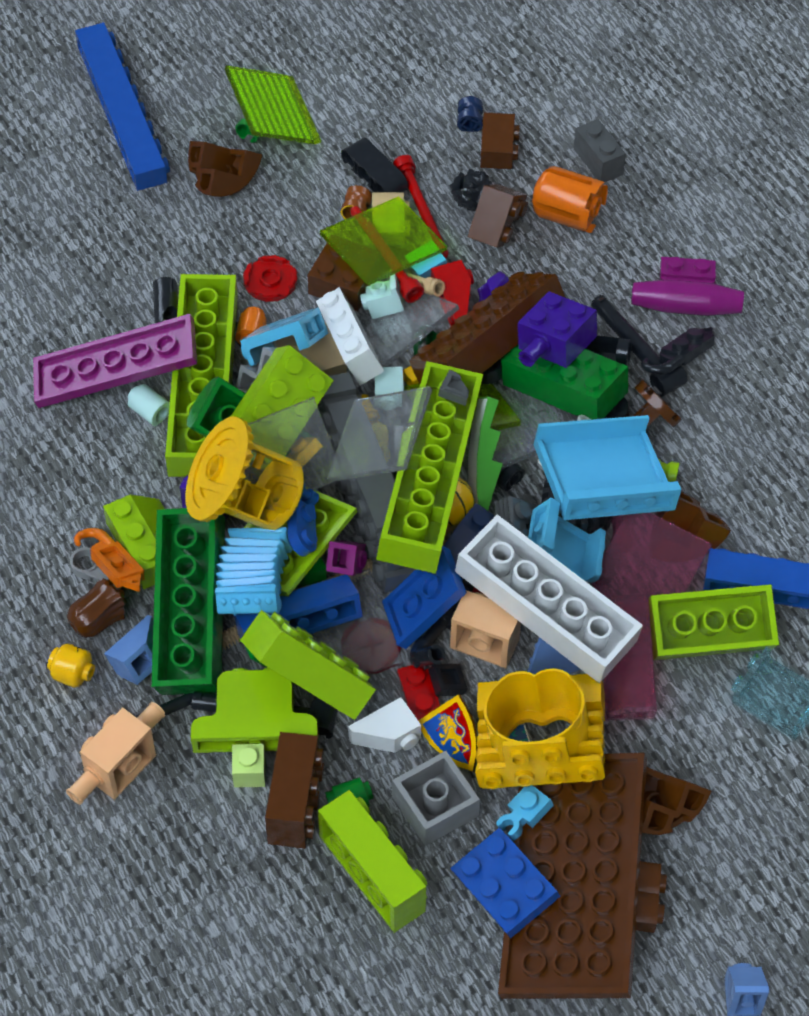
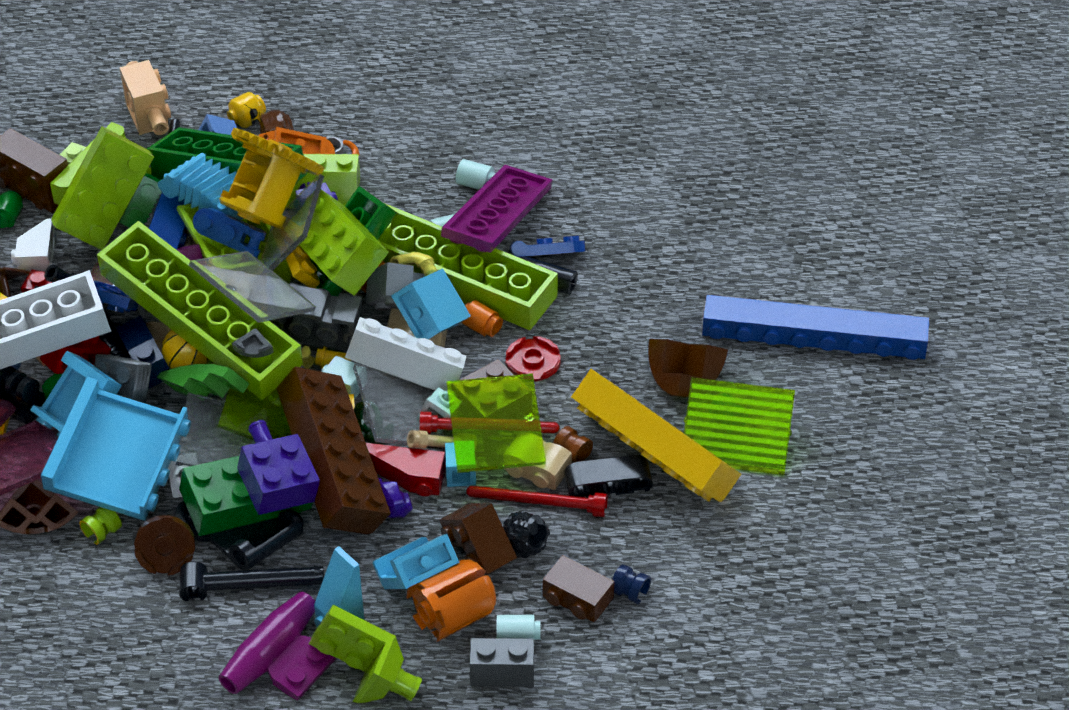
camera: 120 degrees right, 10 degrees down
(62, 418) = (473, 174): none -> light aqua brick
(126, 311) = (546, 246): none -> blue plate
(234, 371) = (422, 261): none -> light yellow piece
(323, 143) = (655, 438): none -> yellow brick
(559, 155) = (518, 627): none -> light aqua brick
(559, 229) = (415, 562): none -> medium azure panel
(627, 256) = (340, 587): none -> medium azure slope
(666, 219) = (367, 649): none -> lime plate
(681, 350) = (208, 600): black plate -> none

